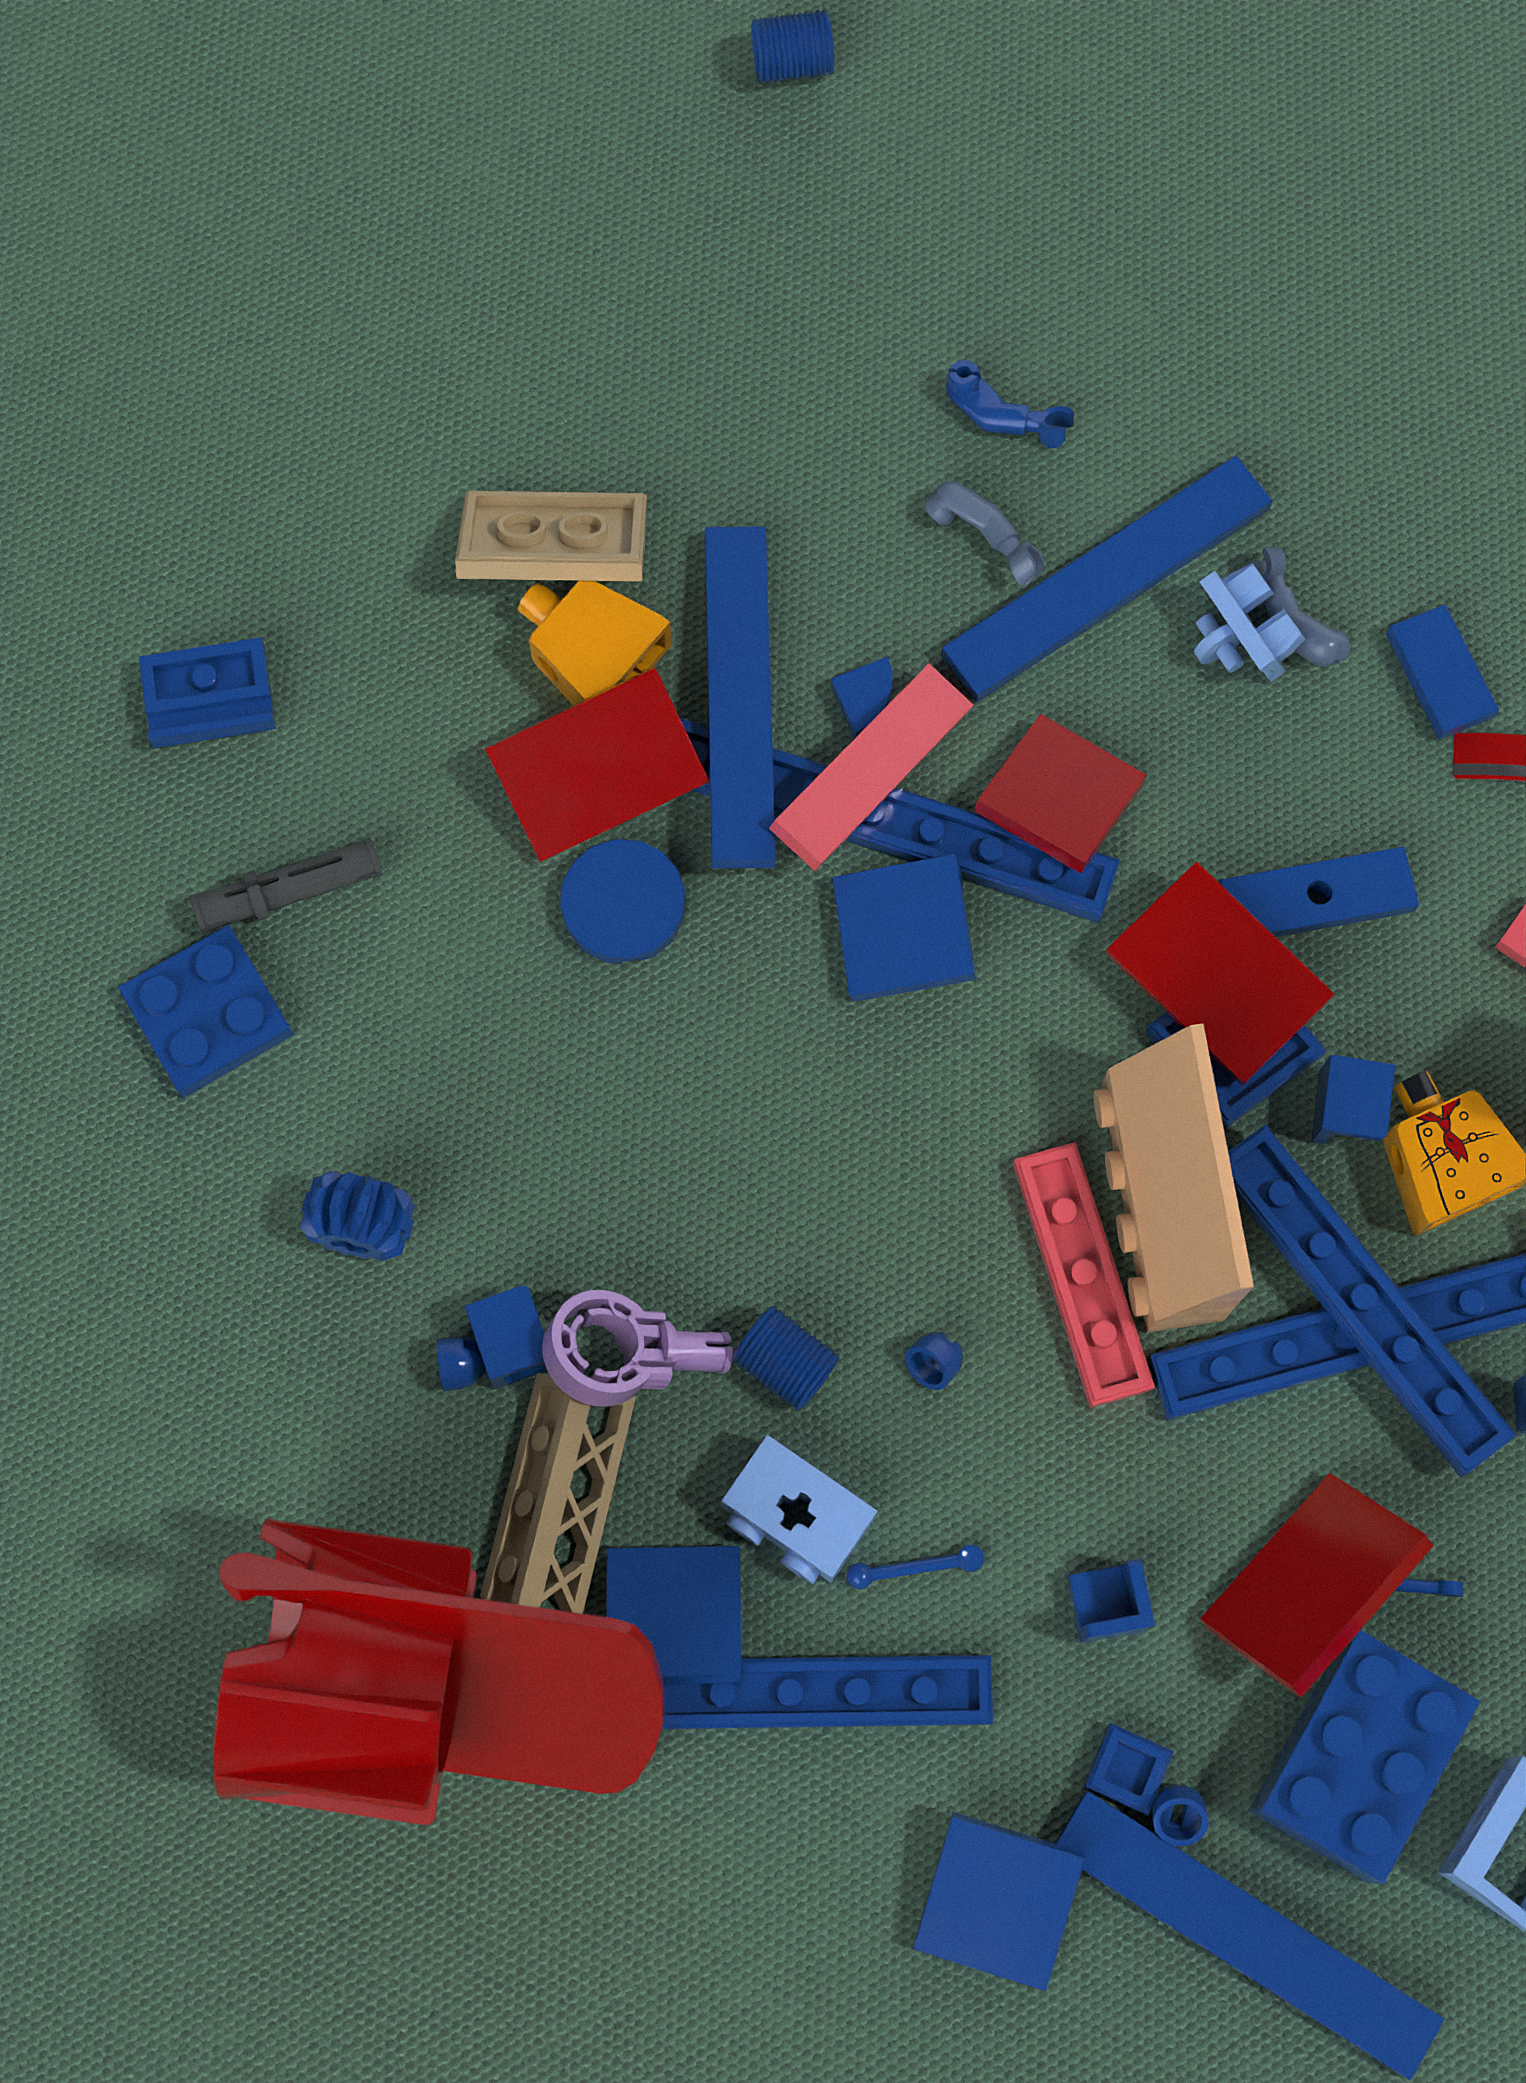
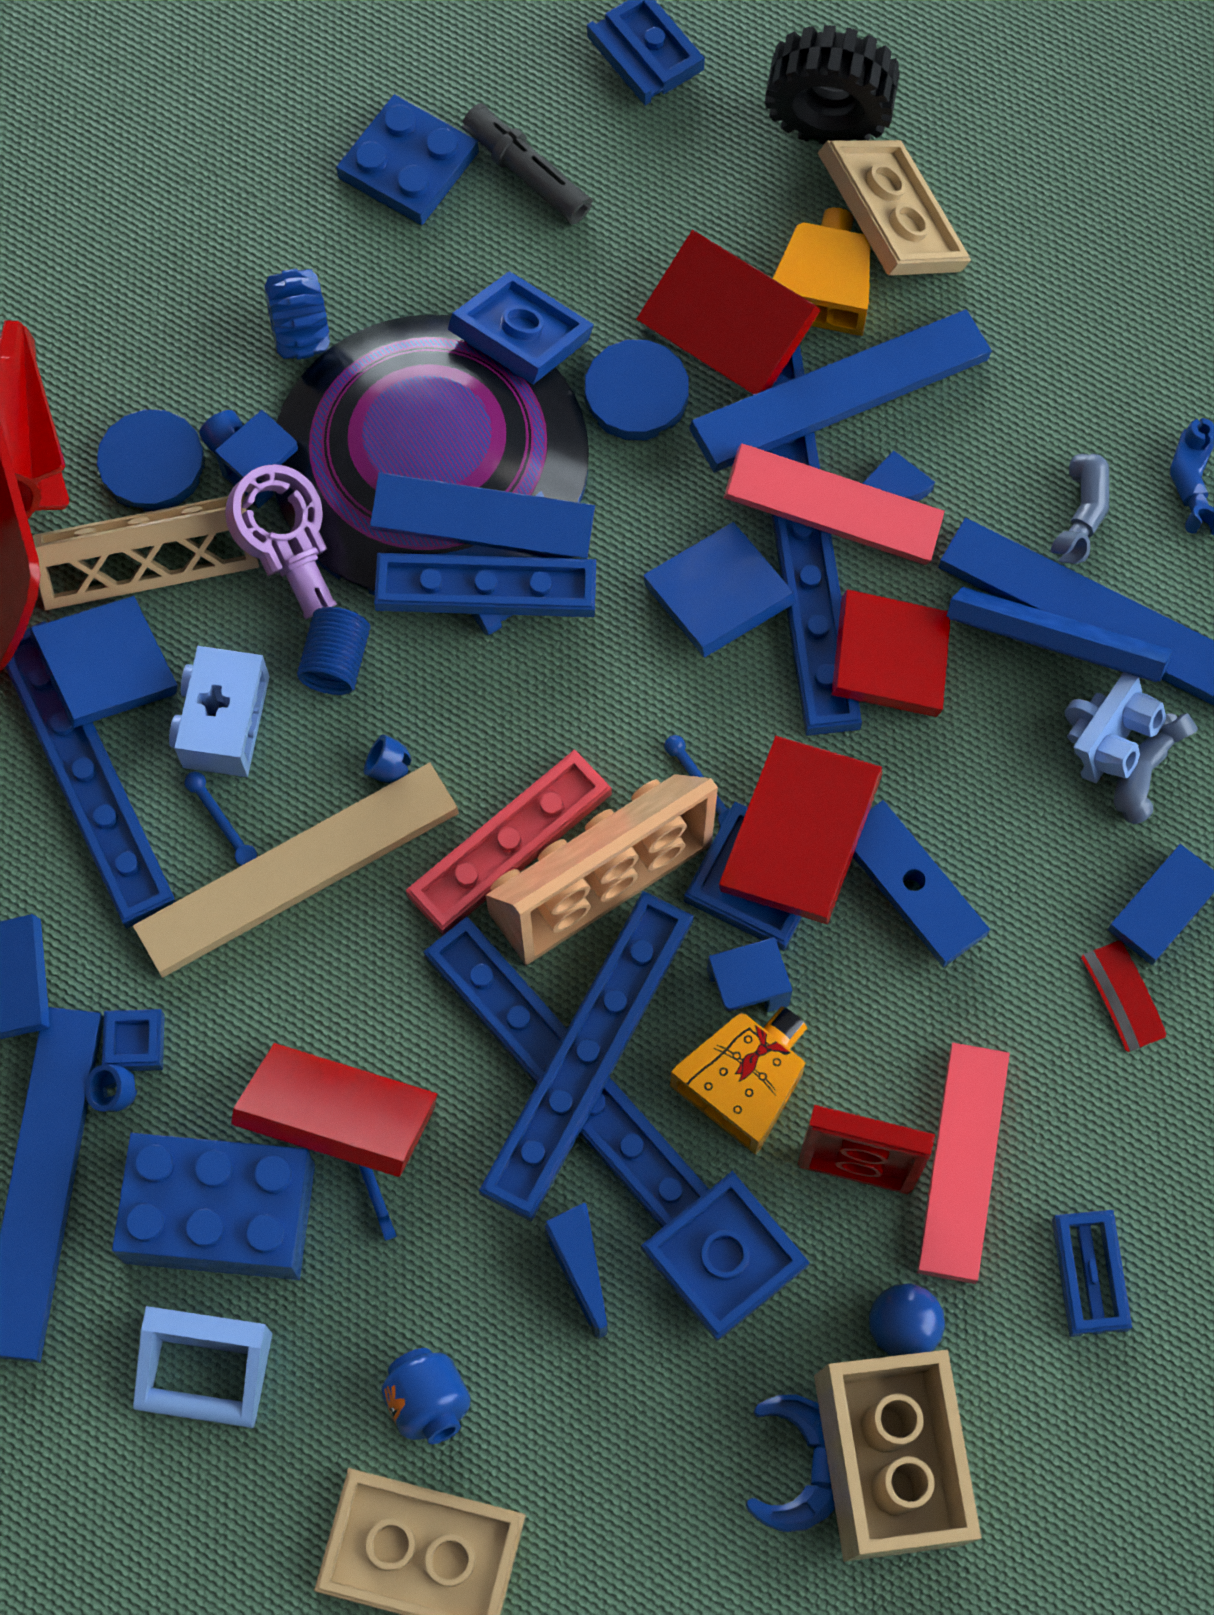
camera: 65 degrees right, 5 degrees down
(387, 523) = (832, 85): none -> black tyre
(442, 1459) = (151, 460): none -> blue tile
(498, 984) = (520, 327): none -> blue plate
(600, 1145) = (426, 408): none -> dish
(718, 1128) = (482, 517): none -> blue tile
(792, 1163) = (485, 585): none -> blue tile
(1013, 1512) = (295, 869): none -> tan tile
(1054, 1056) = (676, 747): none -> blue hinge
(1111, 1602) = (254, 969): blue panel -> none
(1123, 621) = (1060, 634): none -> blue tile

